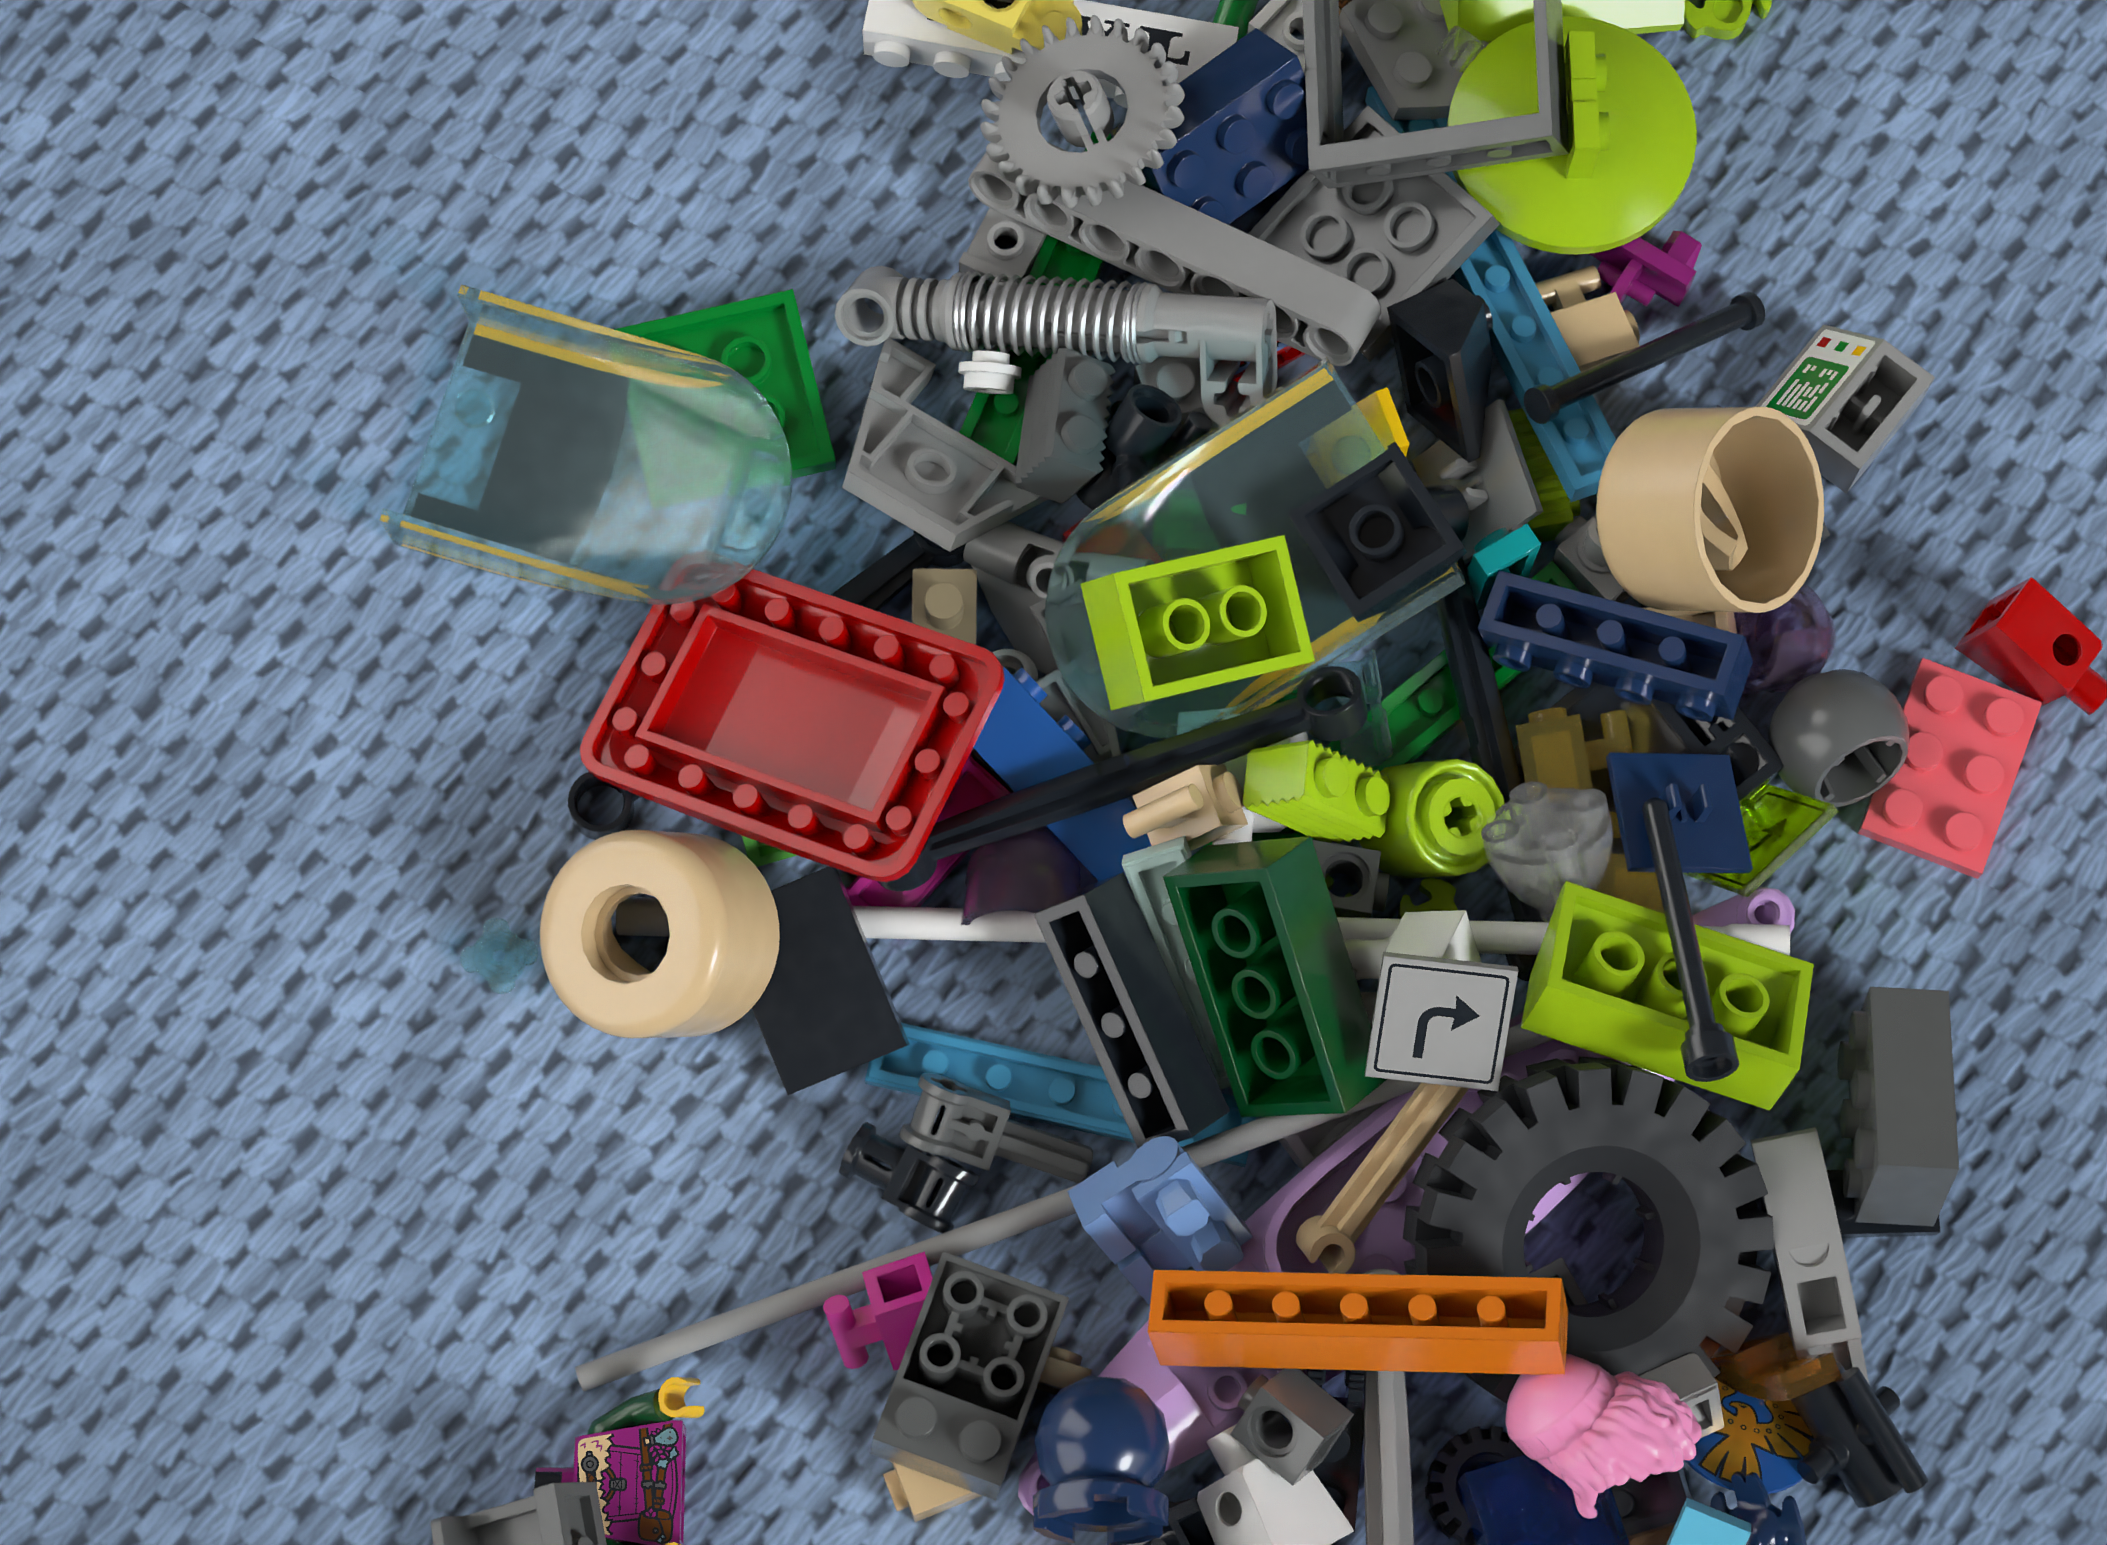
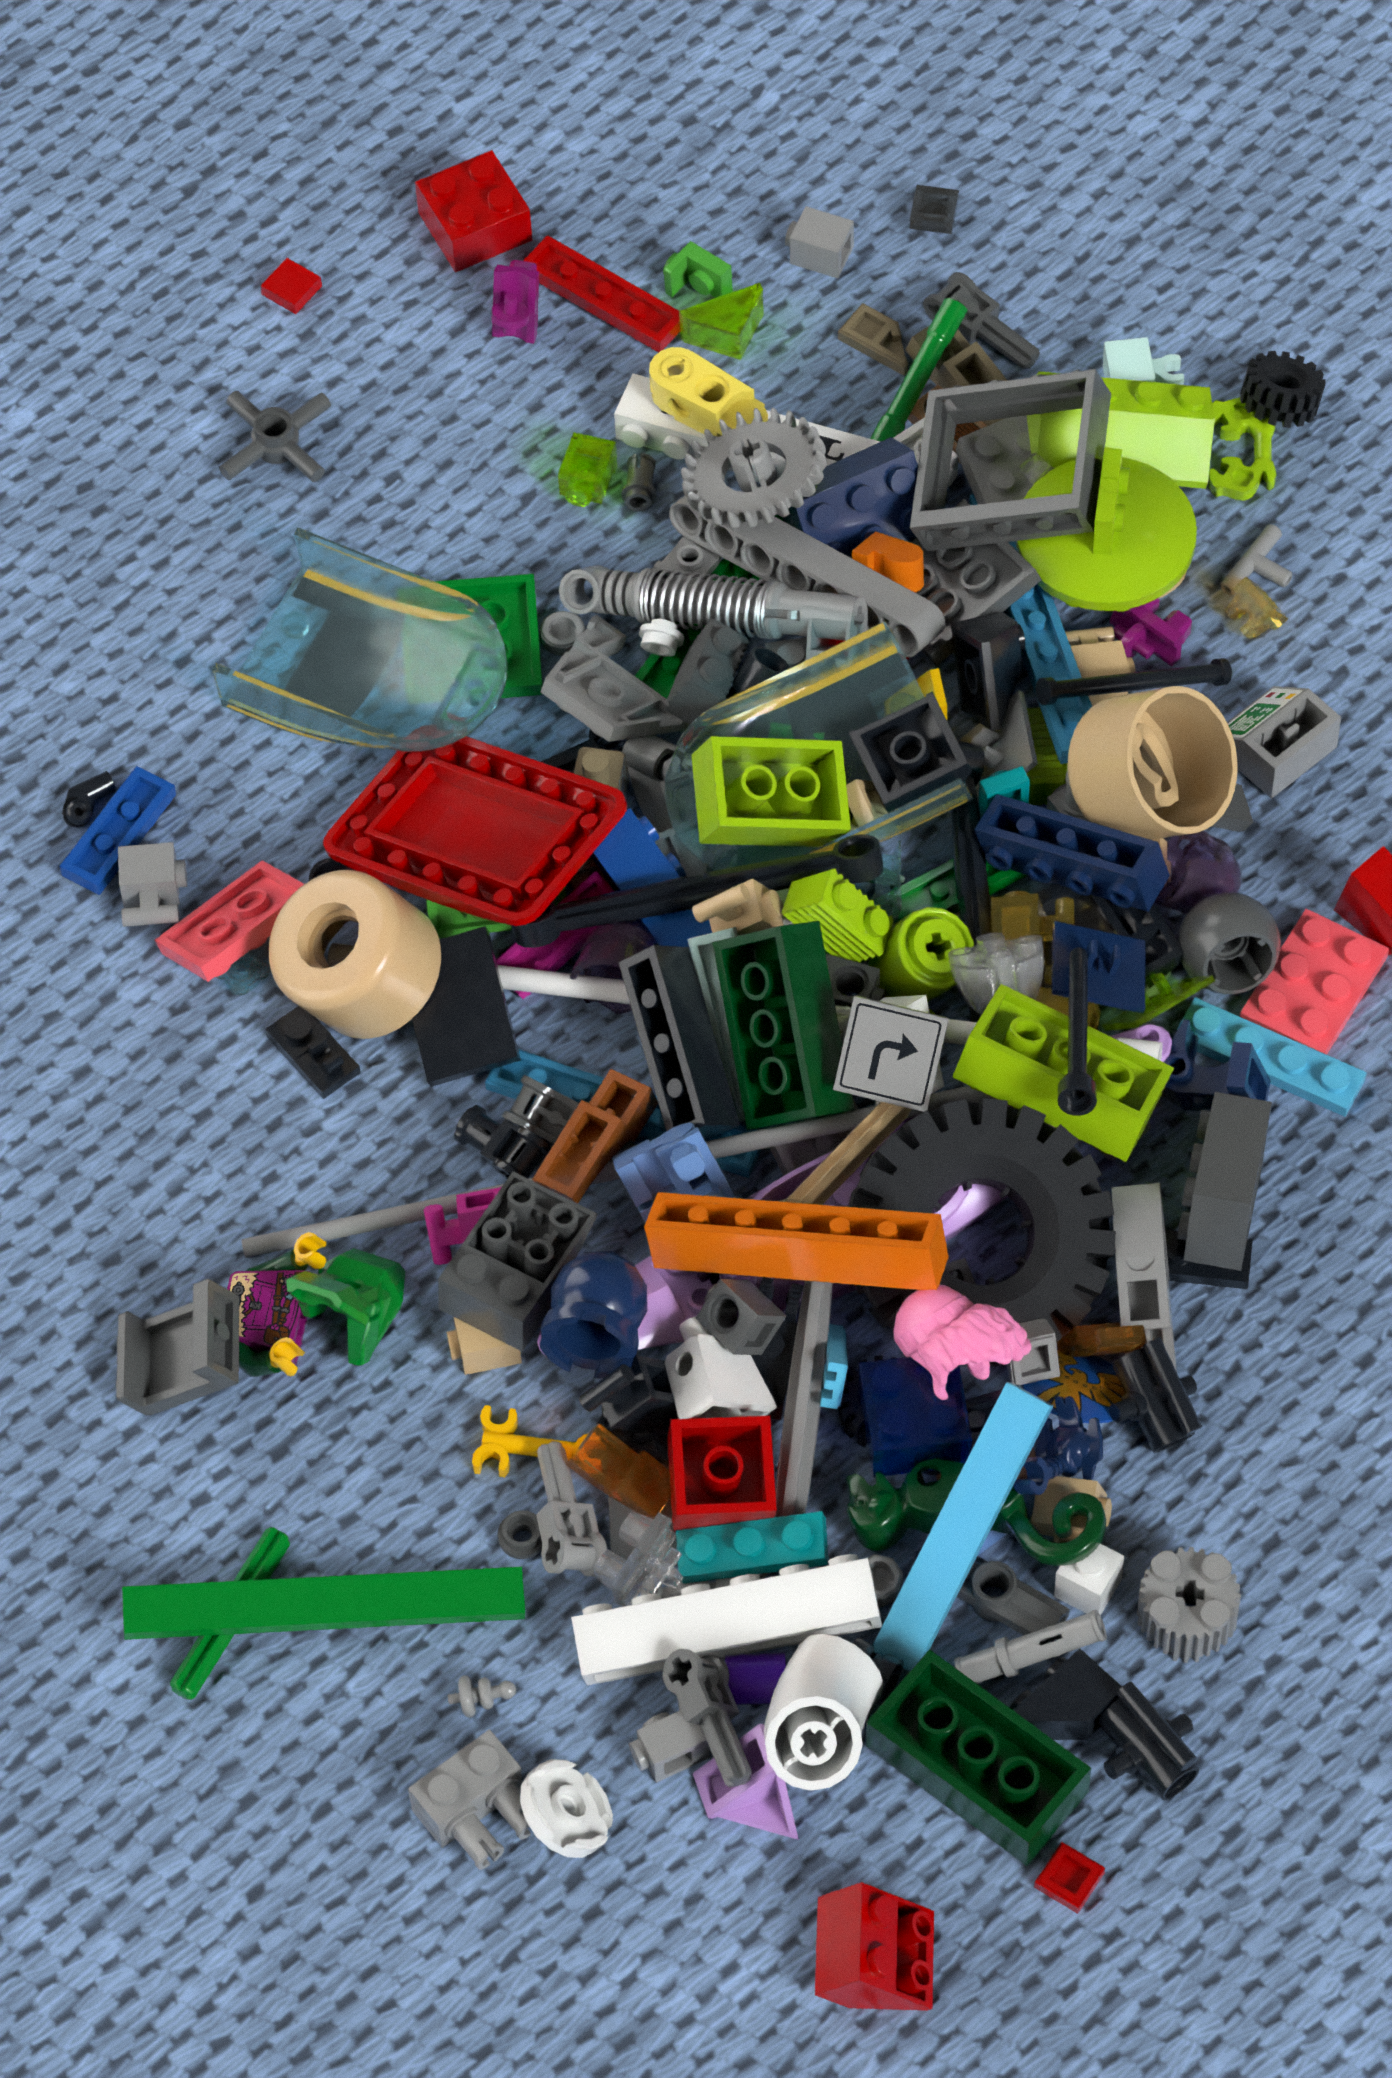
camera: 15 degrees right, 15 degrees down
(228, 719) = (83, 796): none -> black arm
(287, 764) = (120, 823): none -> blue plate
(344, 837) = (150, 883): none -> light grey brick
(388, 98) = (275, 436): none -> dark grey bar
(477, 889) = (229, 922): none -> coral plate
(622, 1069) = (312, 1051): none -> black plate
(755, 1402) = (361, 1288): none -> green piece
(837, 98) = (584, 477): none -> clear neon green brick
(845, 370) = (560, 631): none -> light grey tile
(913, 136) = (639, 490): none -> dark grey pin
(1037, 1162) = (596, 1134): none -> dark orange slope
(1289, 218) = (893, 559): none -> orange leg
(1325, 613) = (864, 803): none -> tan tile
(1428, 1469) = (835, 1368): none -> medium azure tile
(1763, 133) = (1255, 560): none -> light grey piece
(1786, 206) = (1259, 605): none -> clear yellow tile
(1878, 956) = (1194, 1085): none -> dark blue tile
(1916, 888) = (1287, 1062): none -> medium azure plate

